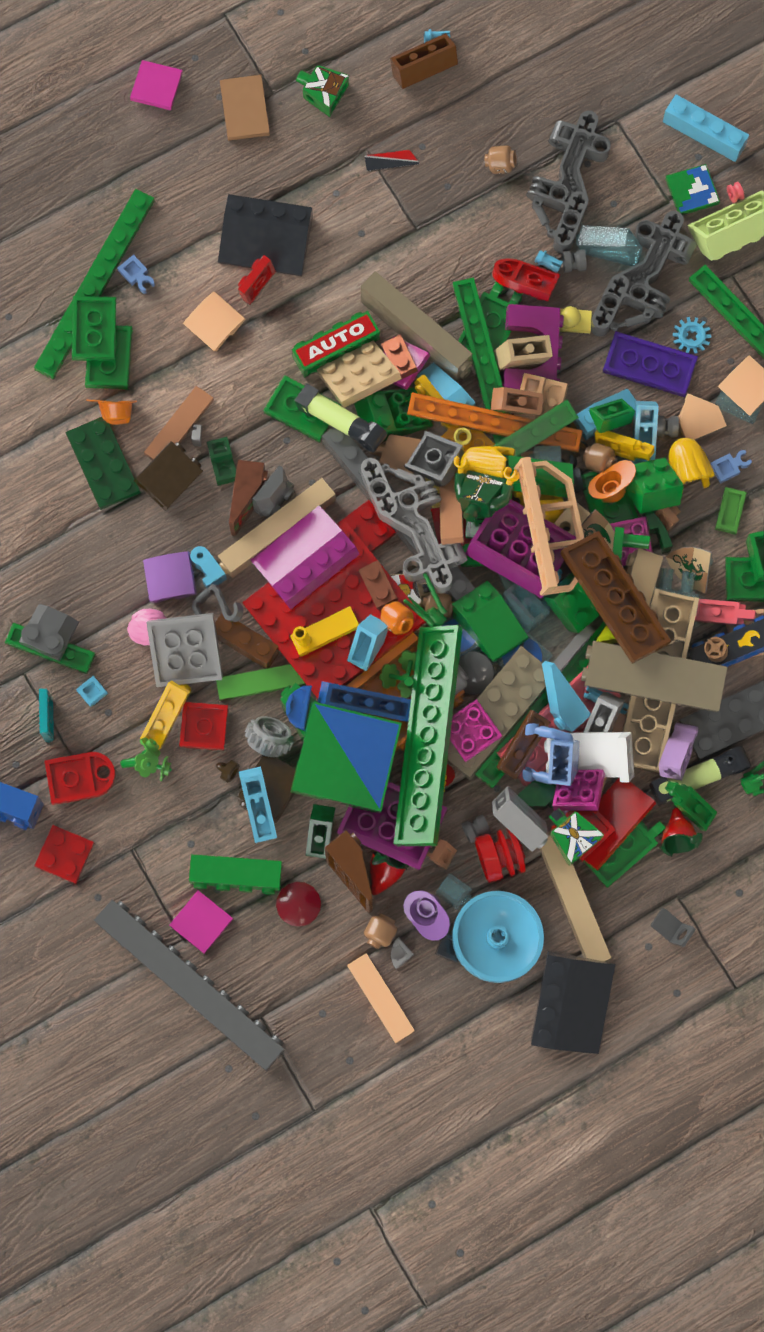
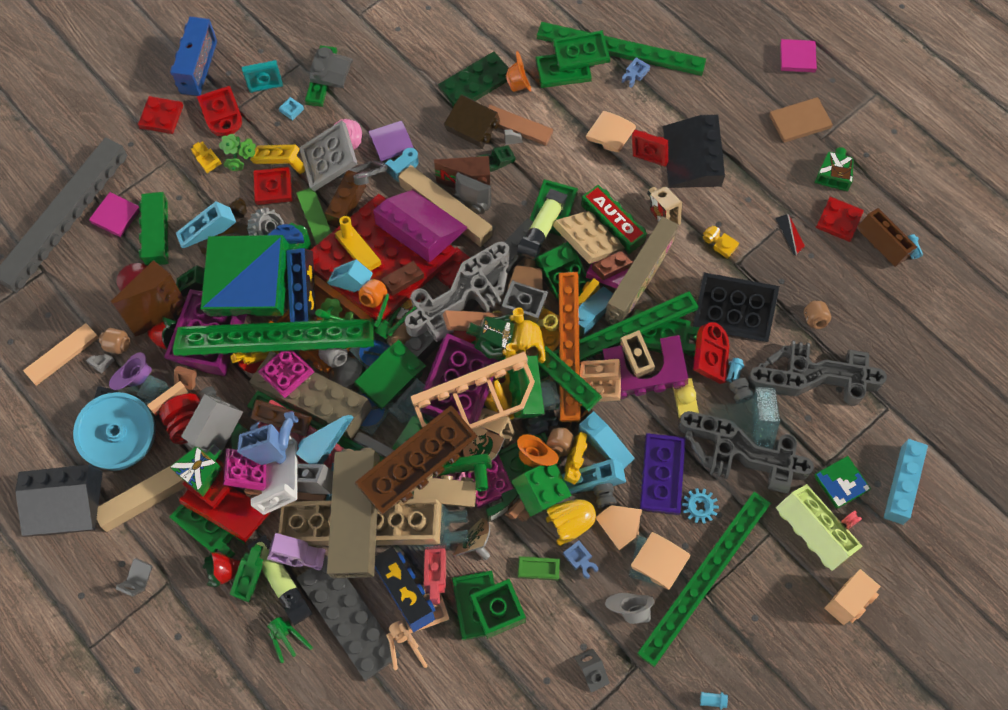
camera: 80 degrees right, 10 degrees down
(148, 801) = (205, 157): none -> yellow plate
(334, 284) = (665, 204): none -> tan torso
(384, 103) = (839, 219): none -> red plate
(390, 233) = (724, 245): none -> yellow plate
(472, 239) = (737, 305): none -> black slope
(472, 870) = (176, 390): none -> light nougat slope
(516, 401) = (590, 357): nougat slope -> none
(612, 415) = (599, 441): green slope -> none
(713, 646) = (392, 562): medium nougat wheel -> none

